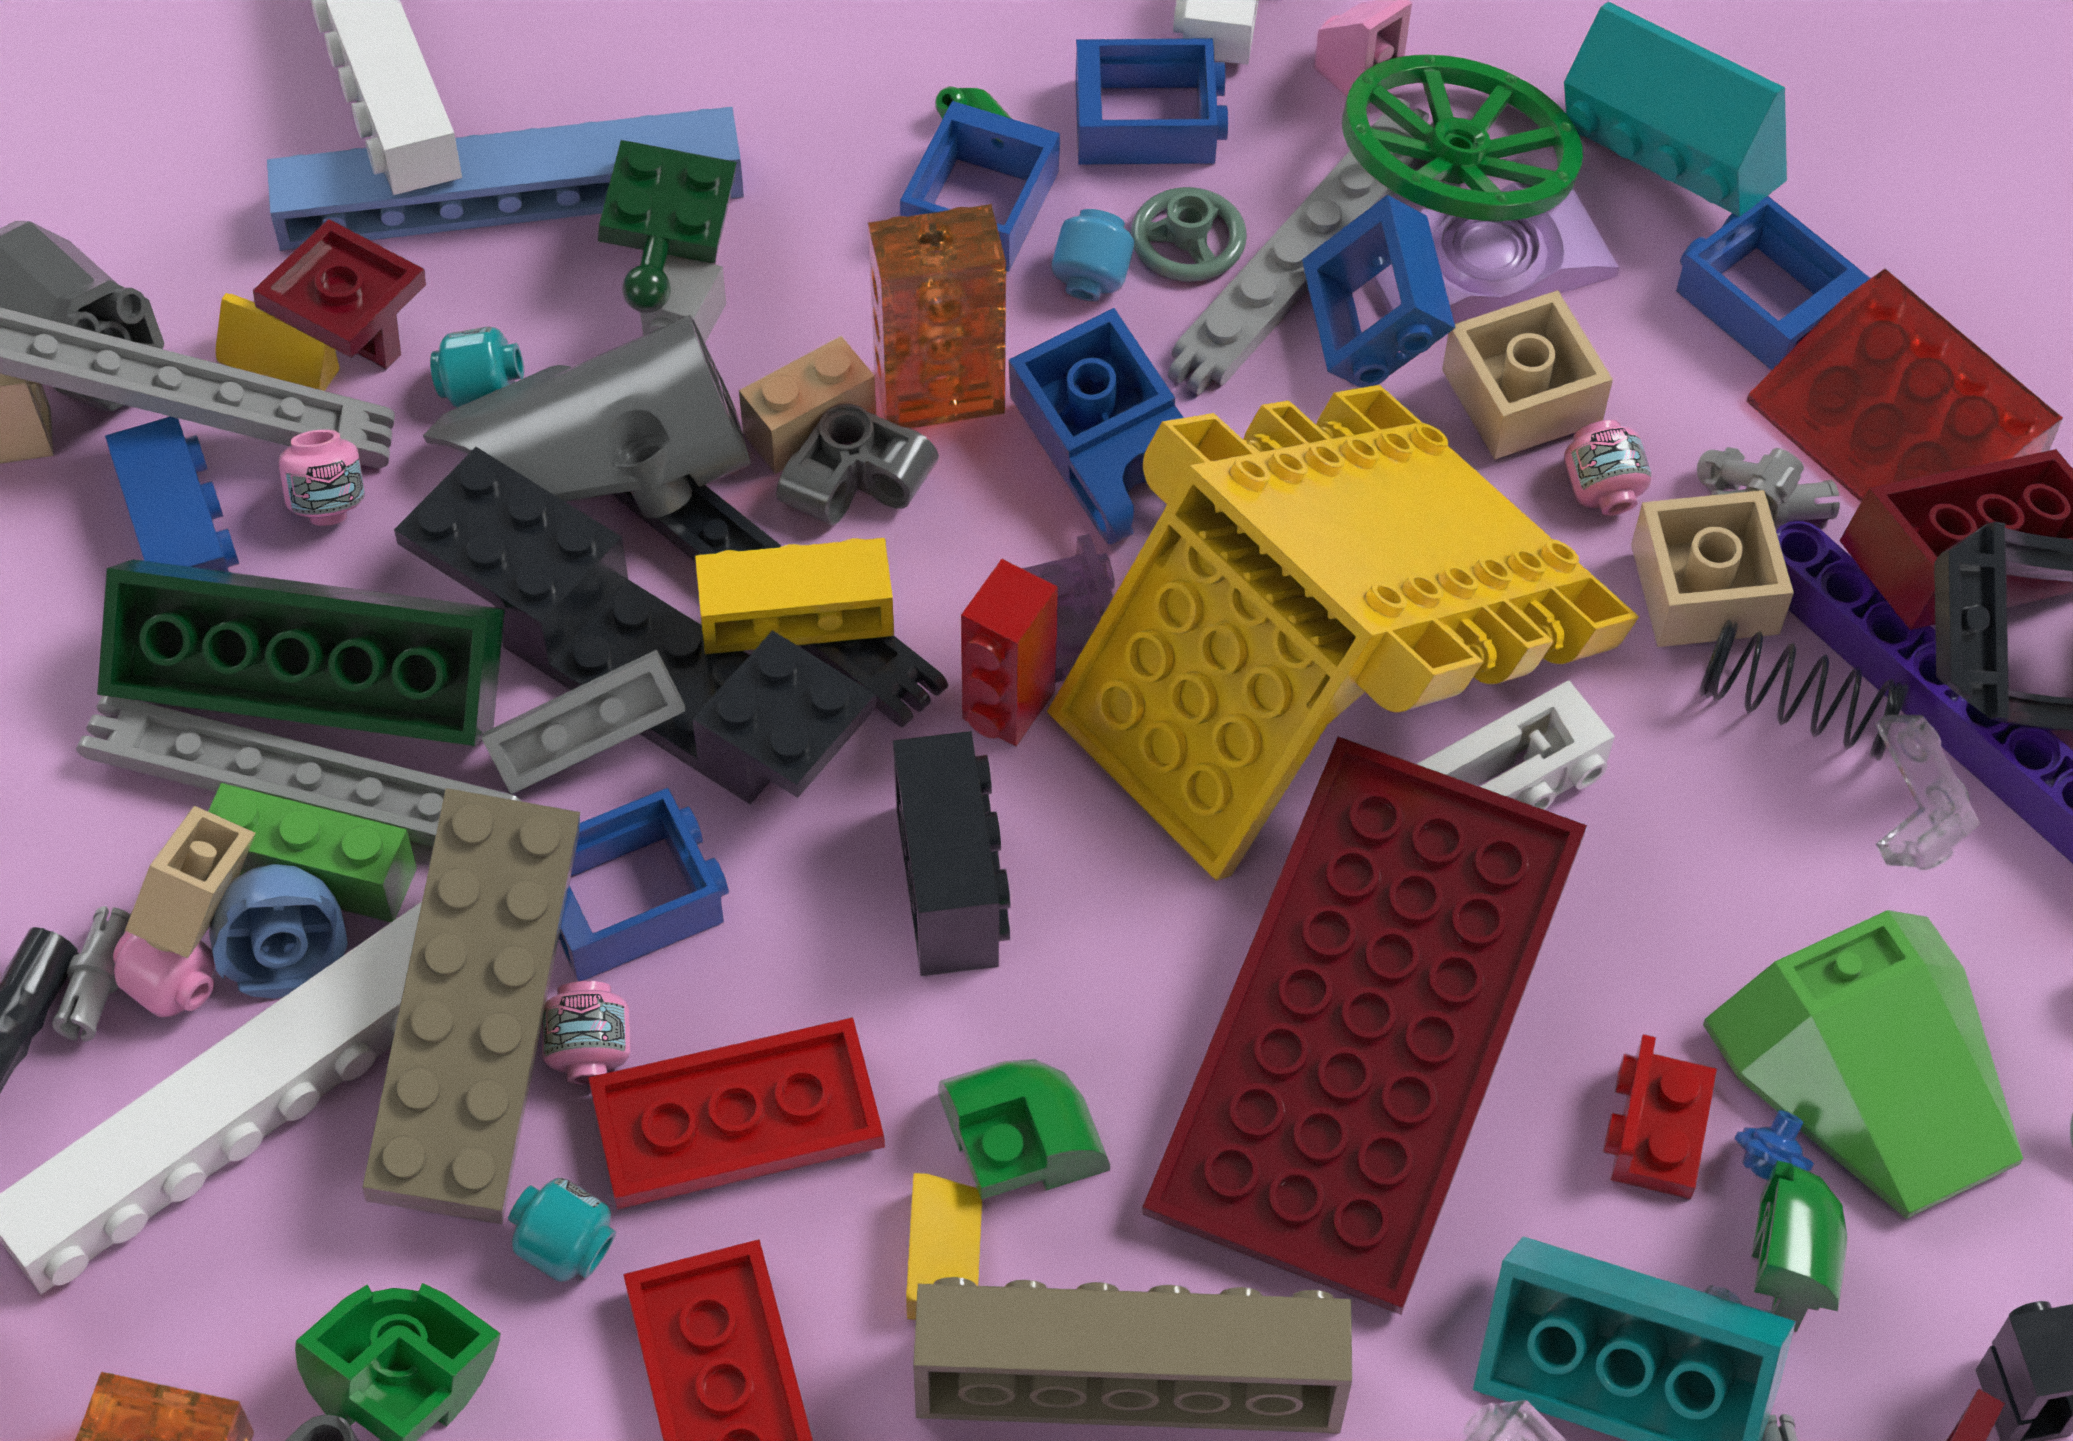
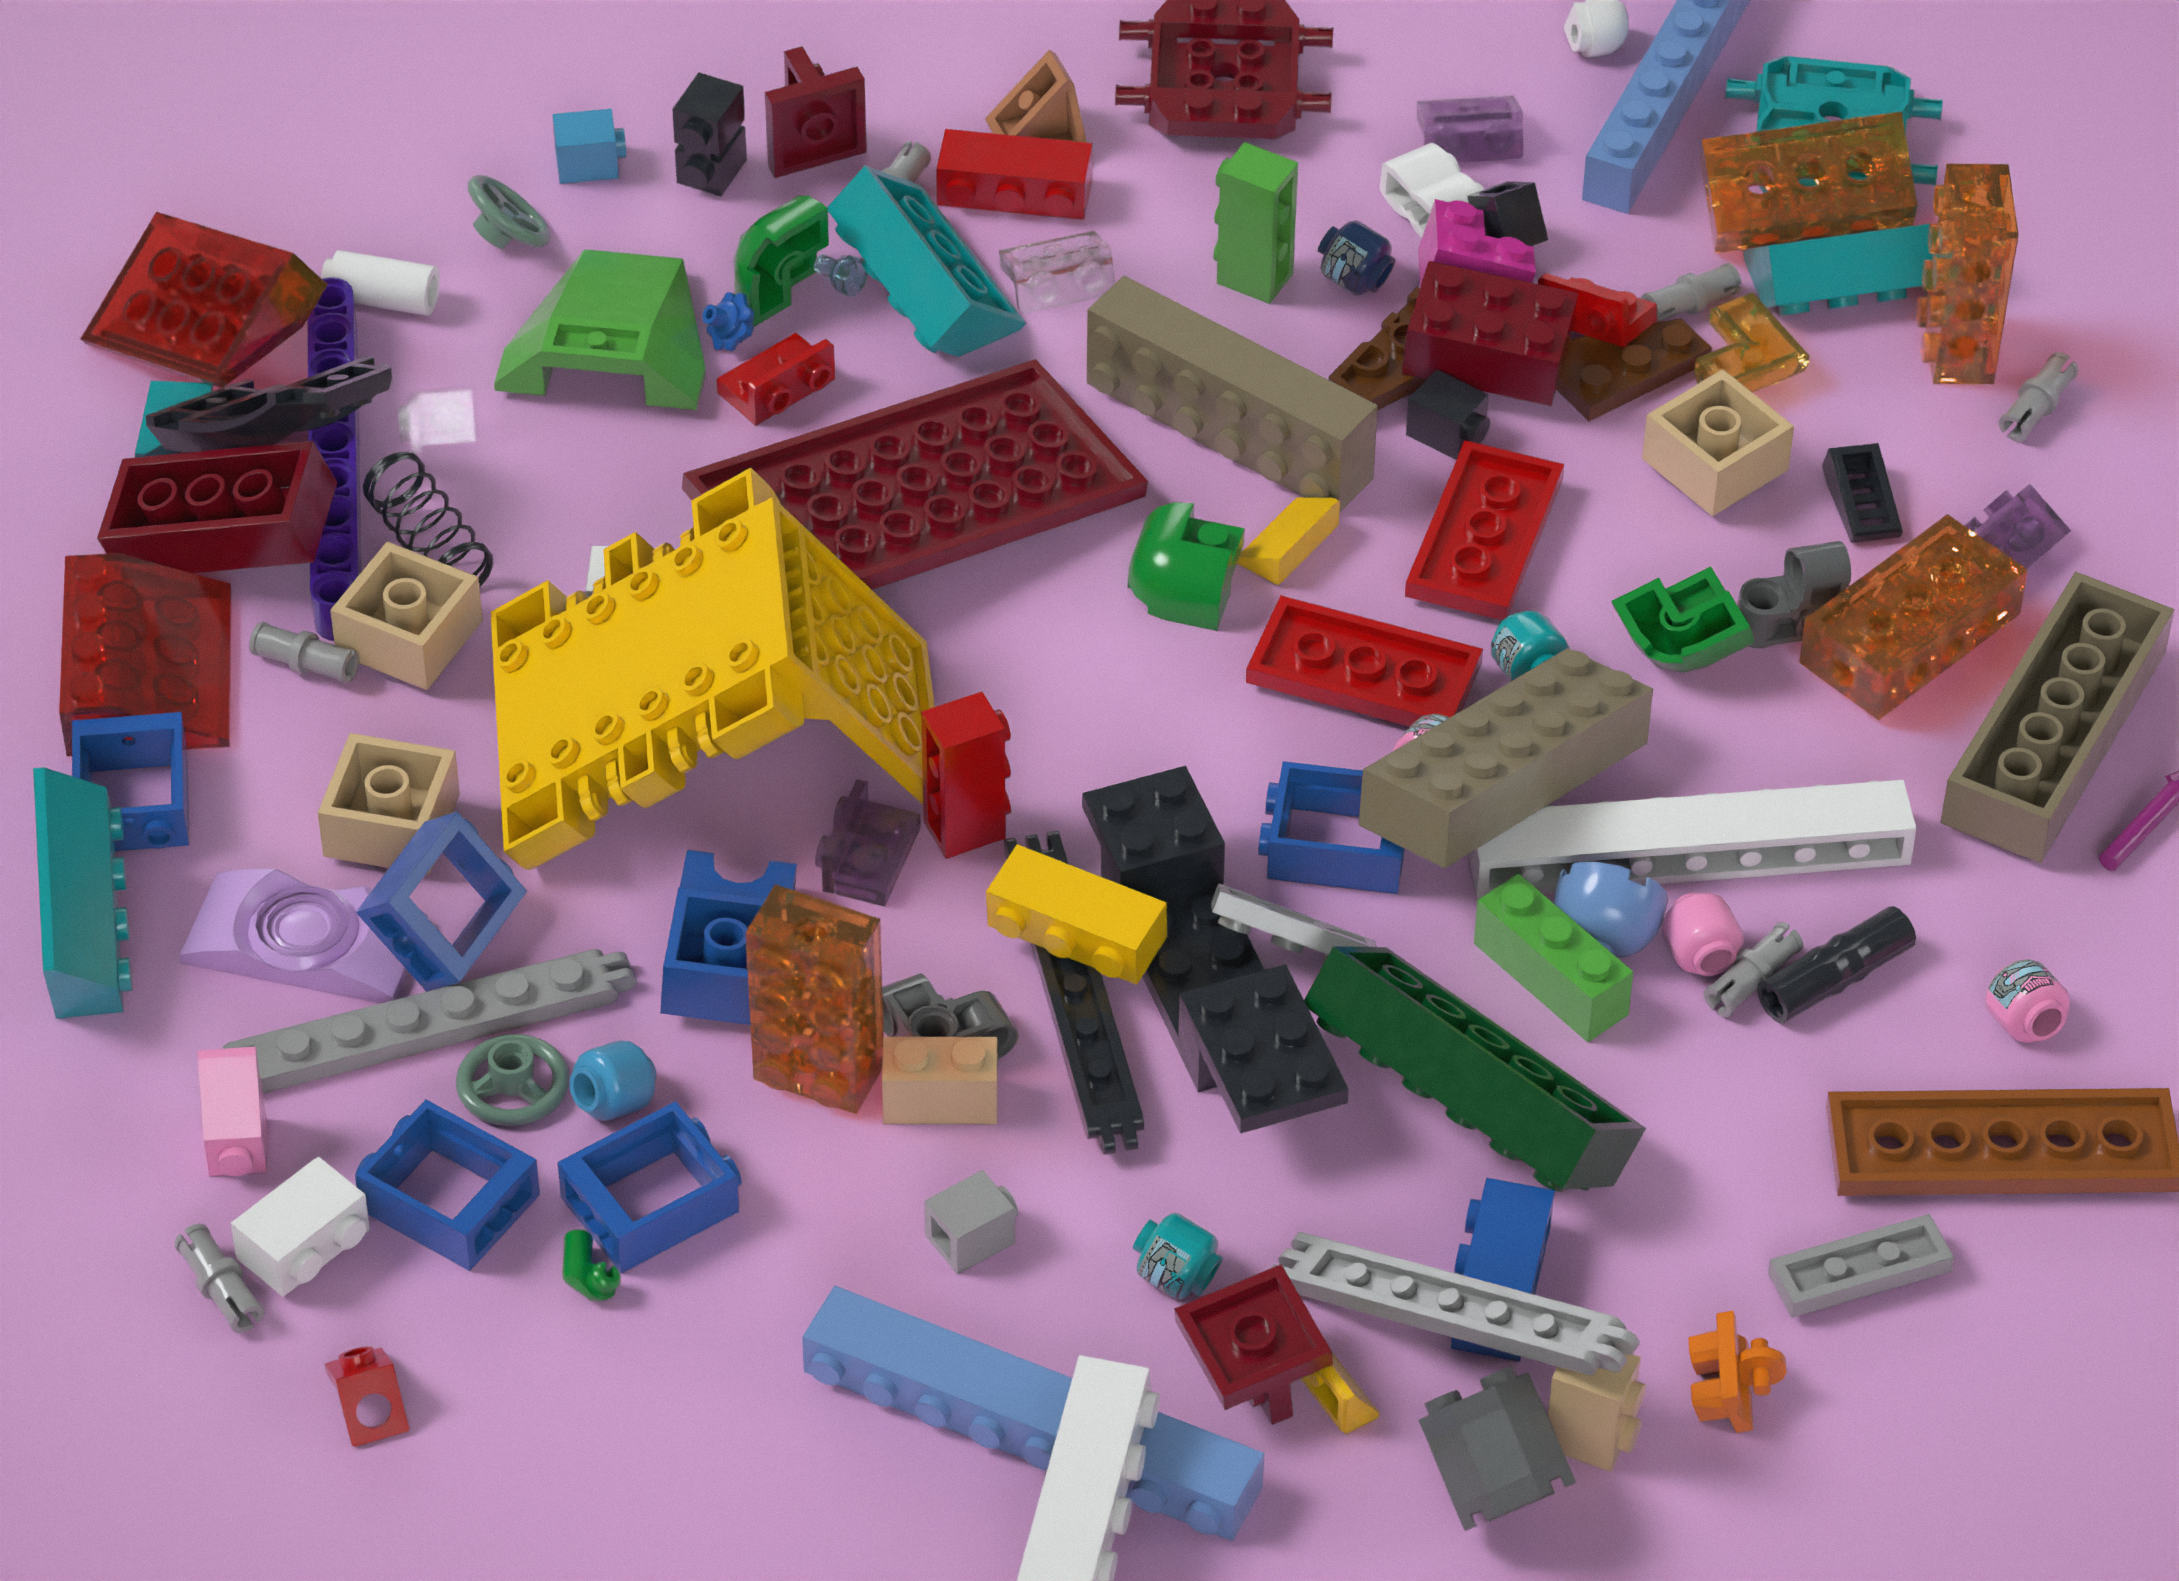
camera: 145 degrees left, 10 degrees down
(189, 882) = (1658, 913): tan brick -> none
(216, 752) = (1469, 972): light grey hinge -> none
(321, 476) = (1351, 1204): head -> none
(612, 423) = (1135, 1124): dark grey panel -> none
(665, 207) = (938, 1257): dark green plate -> none
(951, 853) = (1107, 703): black brick -> none
(1458, 147) = (247, 999): green wheel -> none
(1607, 467) = (398, 717): head -> none
(1774, 474) = (307, 628): light grey bar -> none

